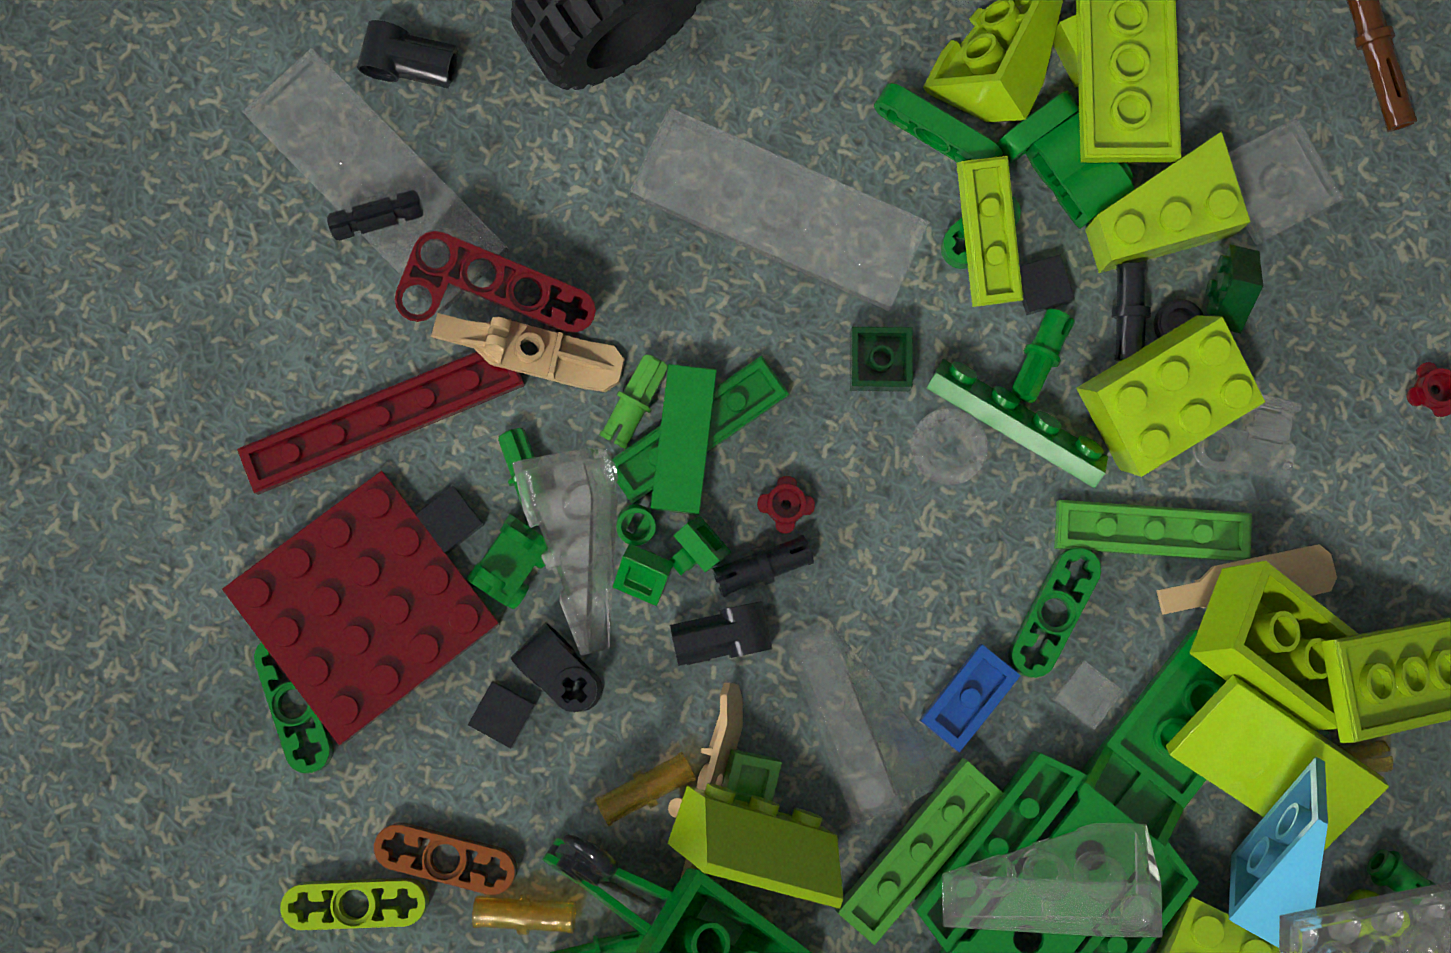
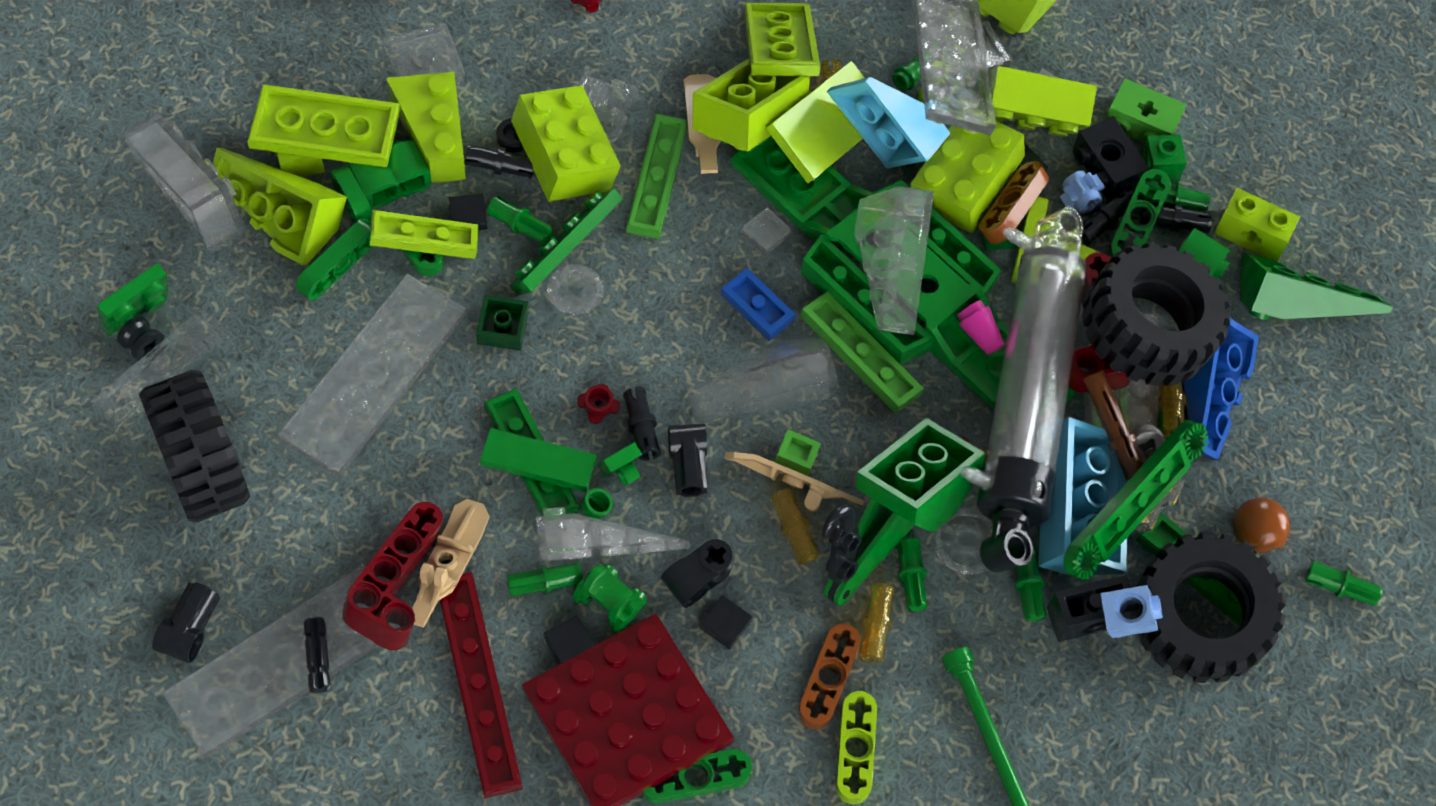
camera: 85 degrees left, 20 degrees down
(635, 400) = (501, 493): bright green axle -> none
(643, 574) = (635, 503): green plate -> none
(758, 844) = (842, 442): lime slope -> none
(1060, 575) = (703, 230): green beam -> none
(1235, 286) = (496, 90): dark green piece -> none

